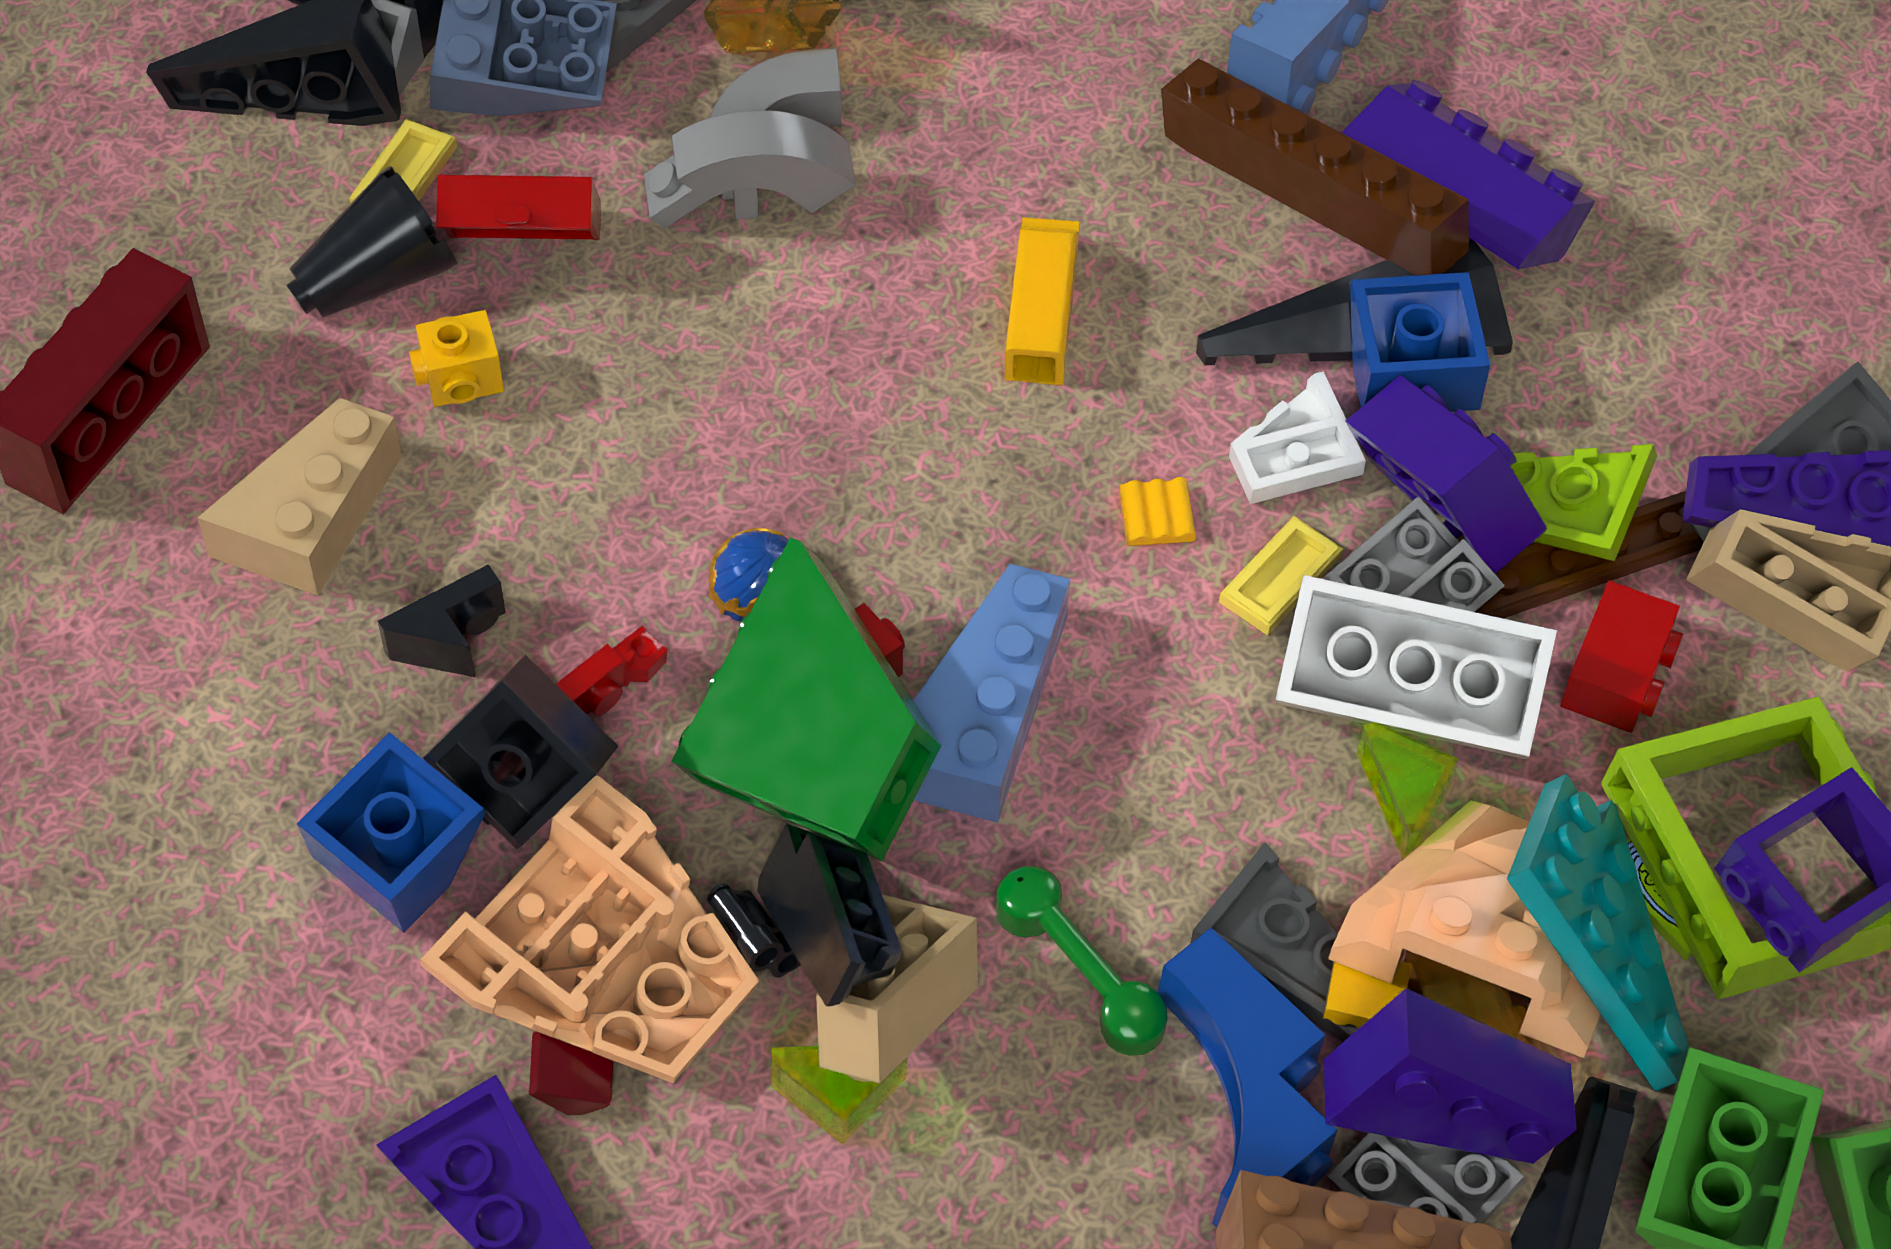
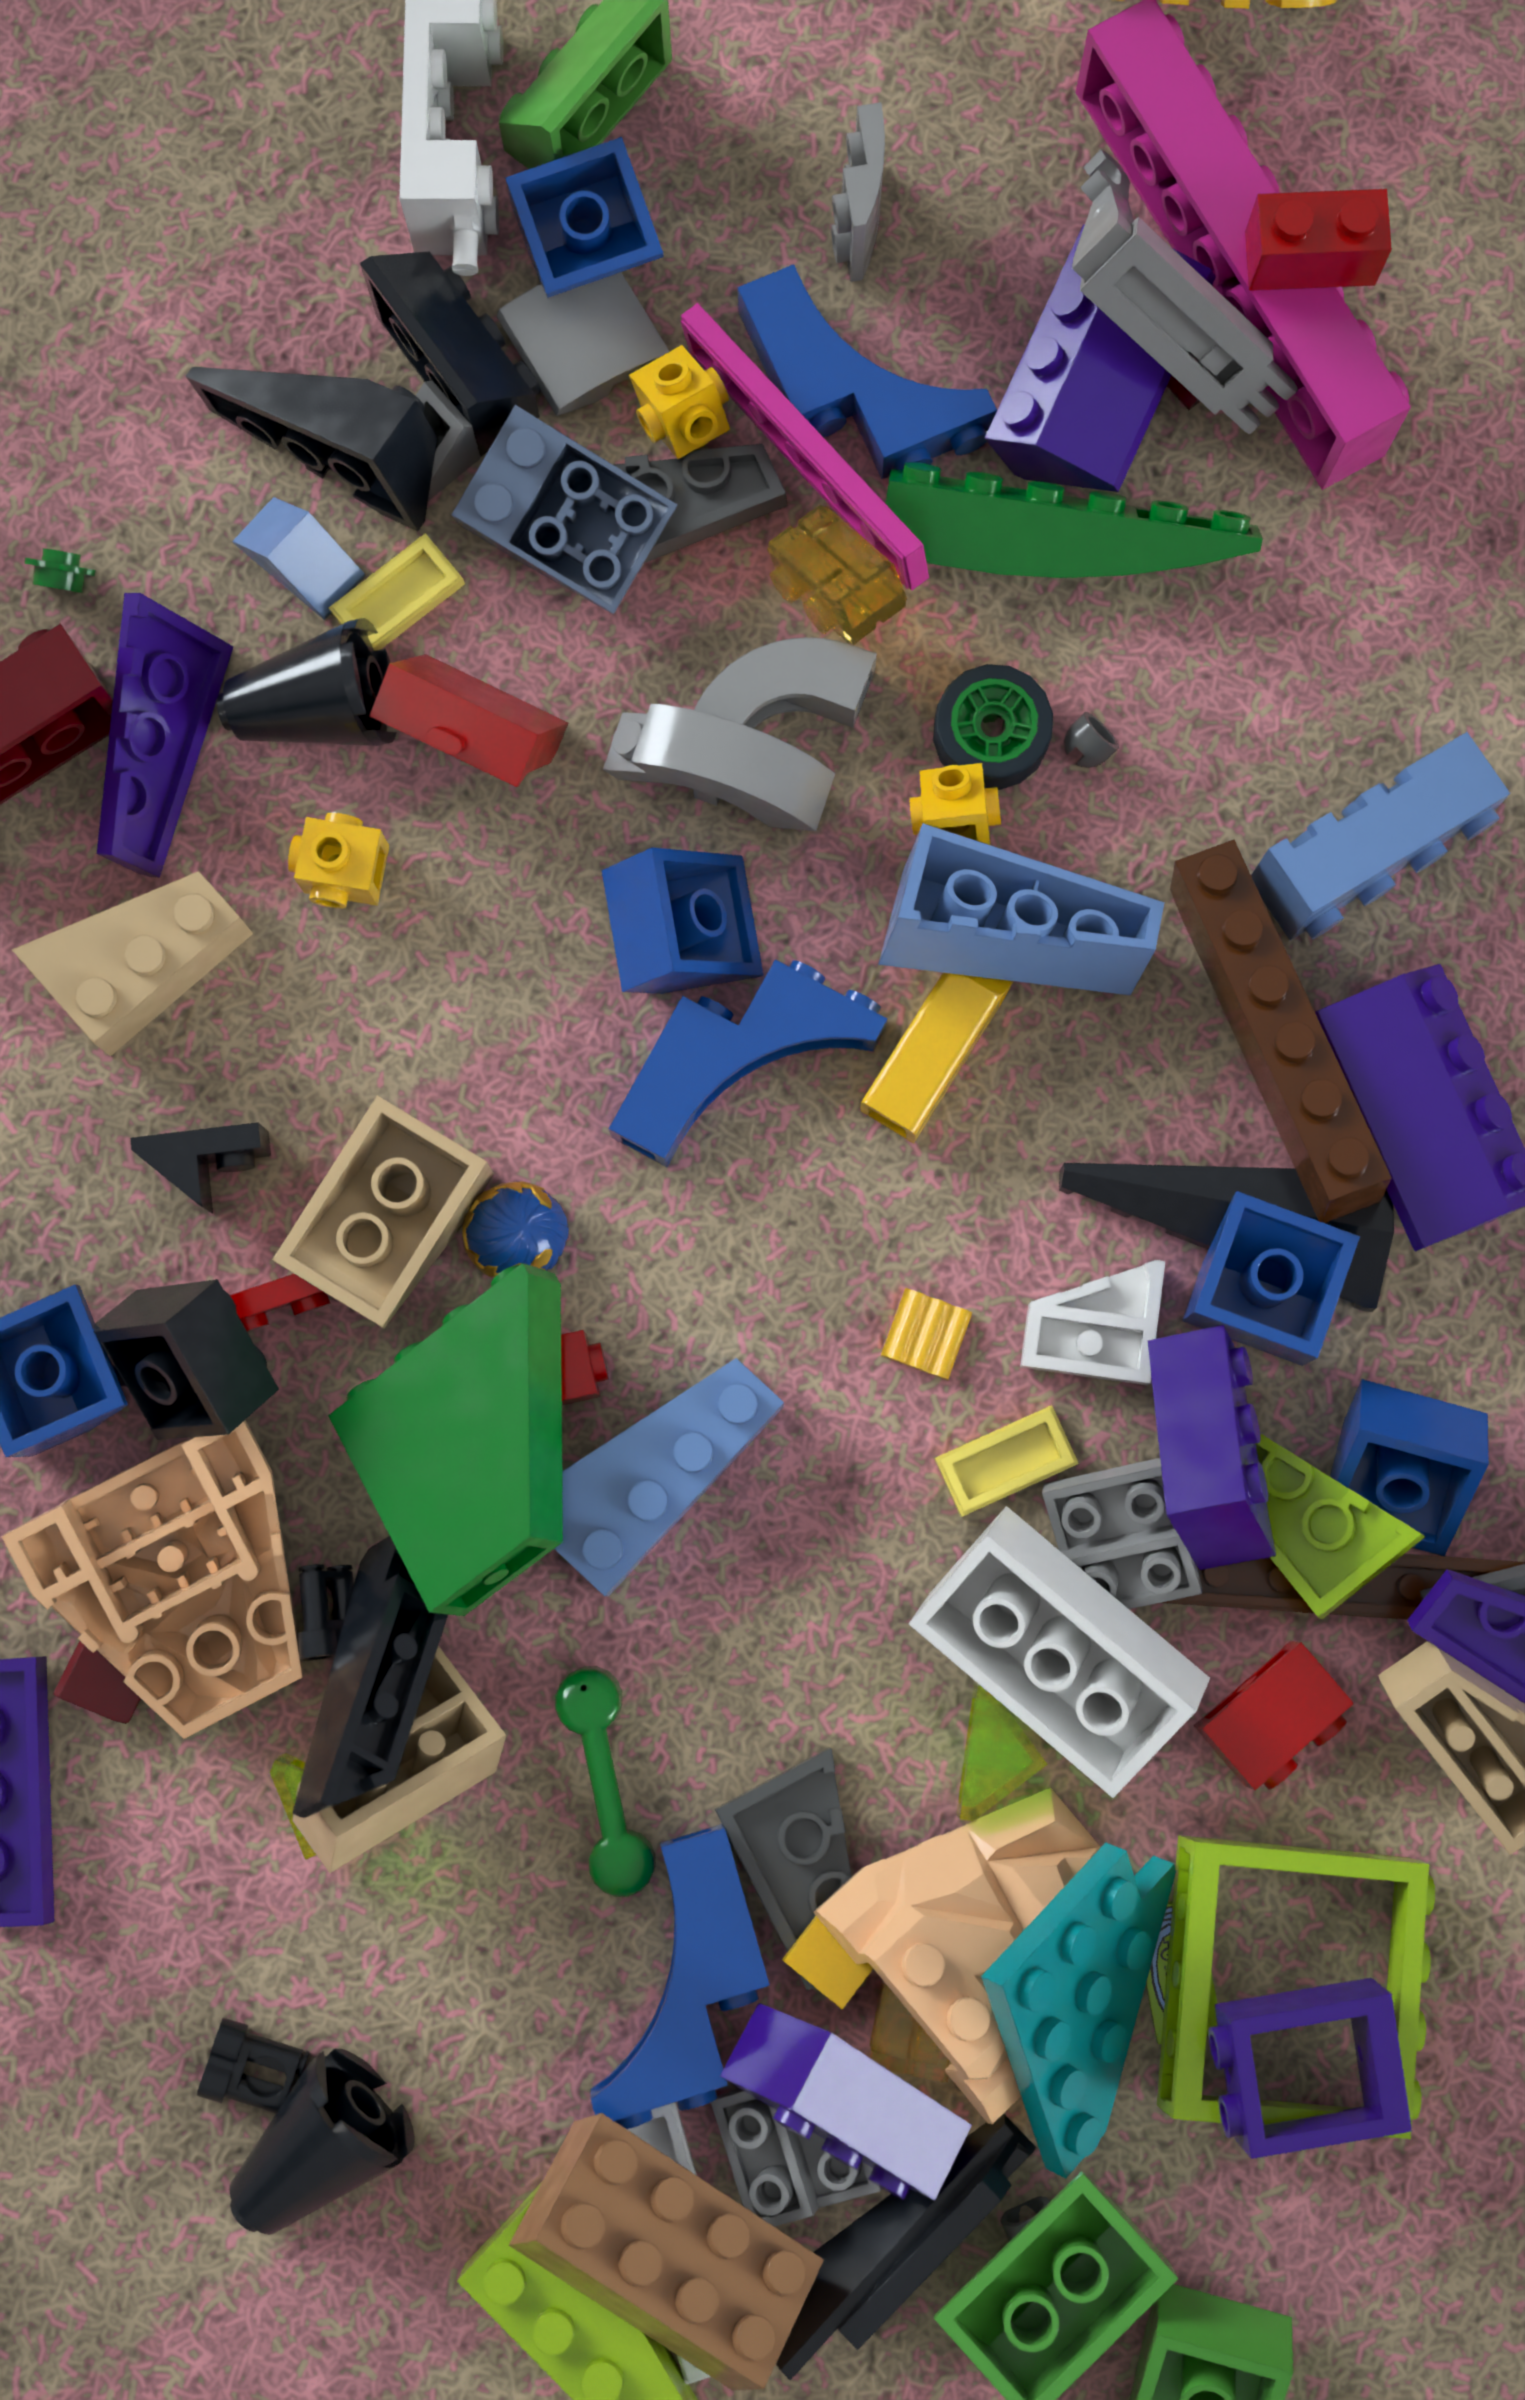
camera: 30 degrees right, 25 degrees up
(94, 253) = (59, 570): none -> green plate
(245, 325) = (157, 727): none -> dark purple wing
(303, 169) = (299, 555): none -> medium blue slope
(639, 578) = (383, 1212): none -> tan slope
(773, 295) = (681, 920): none -> blue slope
(858, 373) = (707, 1053): none -> blue arch
(951, 51) = (985, 696): none -> wheel
(963, 133) = (956, 802): none -> yellow brick
(1041, 52) = (1091, 739): none -> dark grey hinge
(1058, 174) = (1016, 919): none -> medium blue wedge
(1612, 416) = (1413, 1458): none -> blue slope

